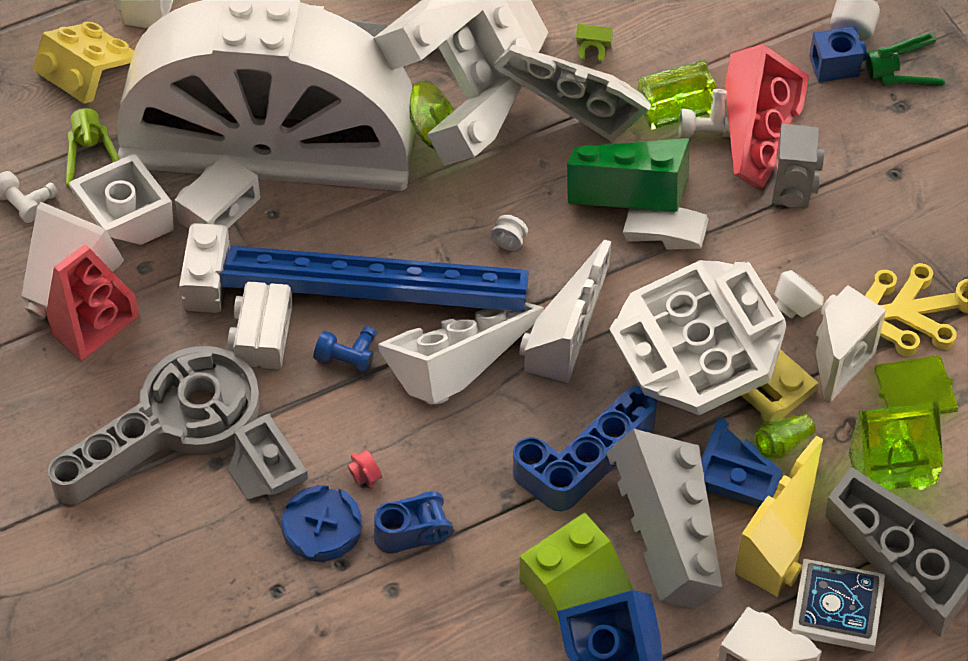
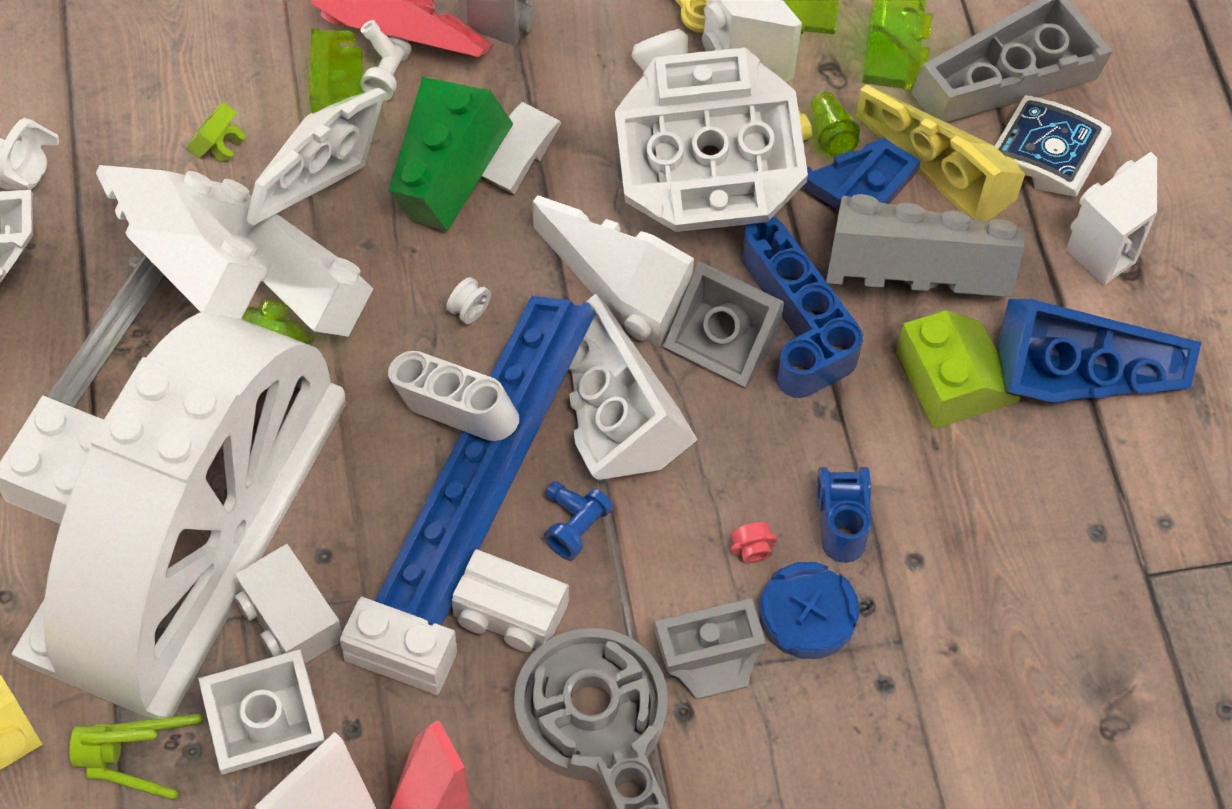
camera: 75 degrees left, 5 degrees up
(412, 238) = (453, 395): none -> white beam
(548, 401) = (725, 324): none -> light grey slope

